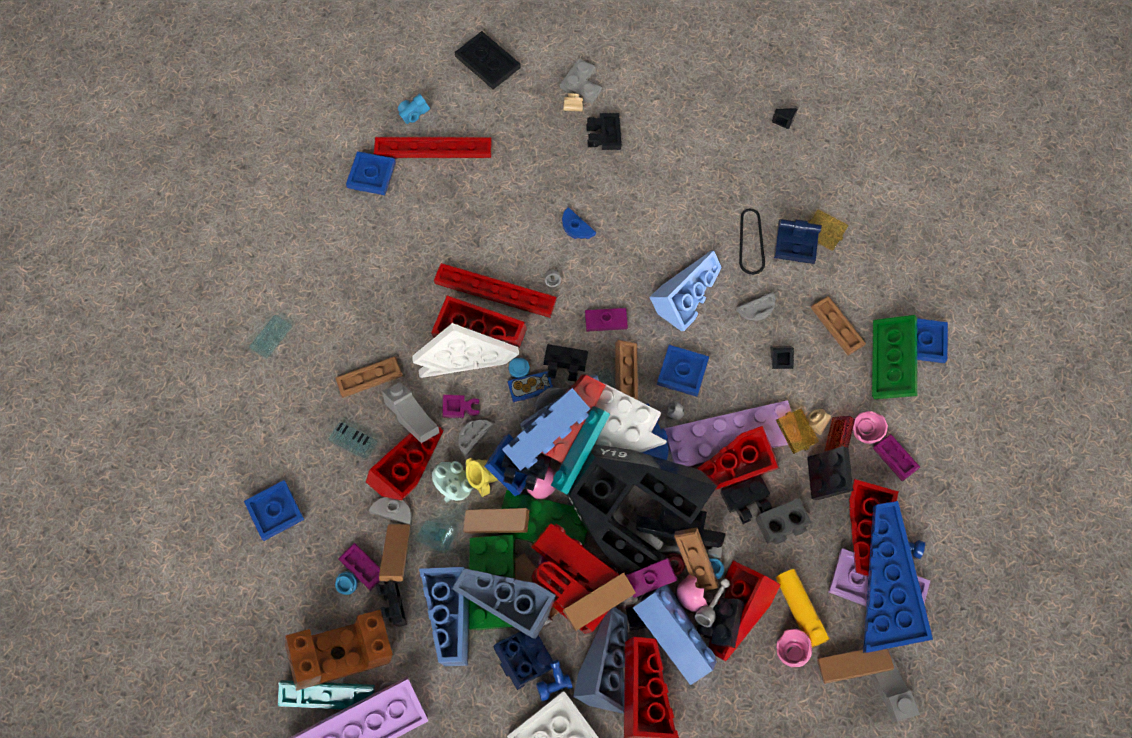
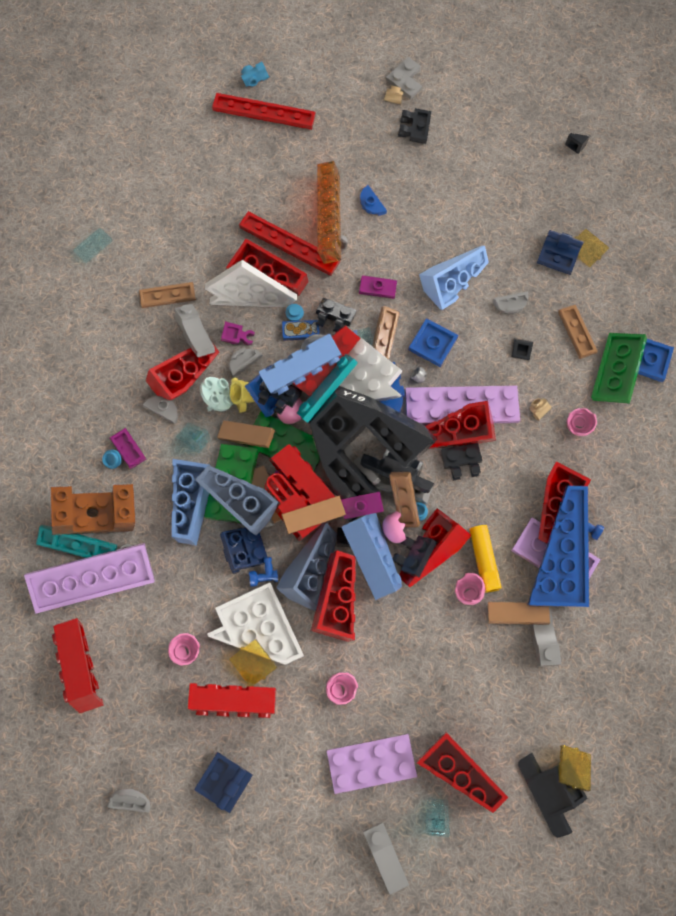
camera: 10 degrees right, 5 degrees up
(274, 510) = (65, 388): blue plate -> none
(353, 440) = (142, 345): clear light blue tile -> none
(370, 173) = (206, 123): blue plate -> none
(395, 552) = (156, 442): medium nougat tile -> none
(395, 611) = (147, 475): black plate -> none
(487, 60) = (328, 43): black plate -> none
(533, 247) = (328, 212): none -> clear orange brick
(681, 564) = (391, 504): dark red plate -> none
(706, 614) = (402, 546): light grey hinge -> none
(741, 242) = (529, 245): black piece -> none
(780, 517) = (485, 480): dark grey brick -> none
(797, 431) = (518, 412): clear yellow piece -> none
(830, 473) = (537, 453): black plate -> none
(840, 432) = (553, 425): clear red plate -> none
(896, 457) = (598, 452): magenta plate -> none

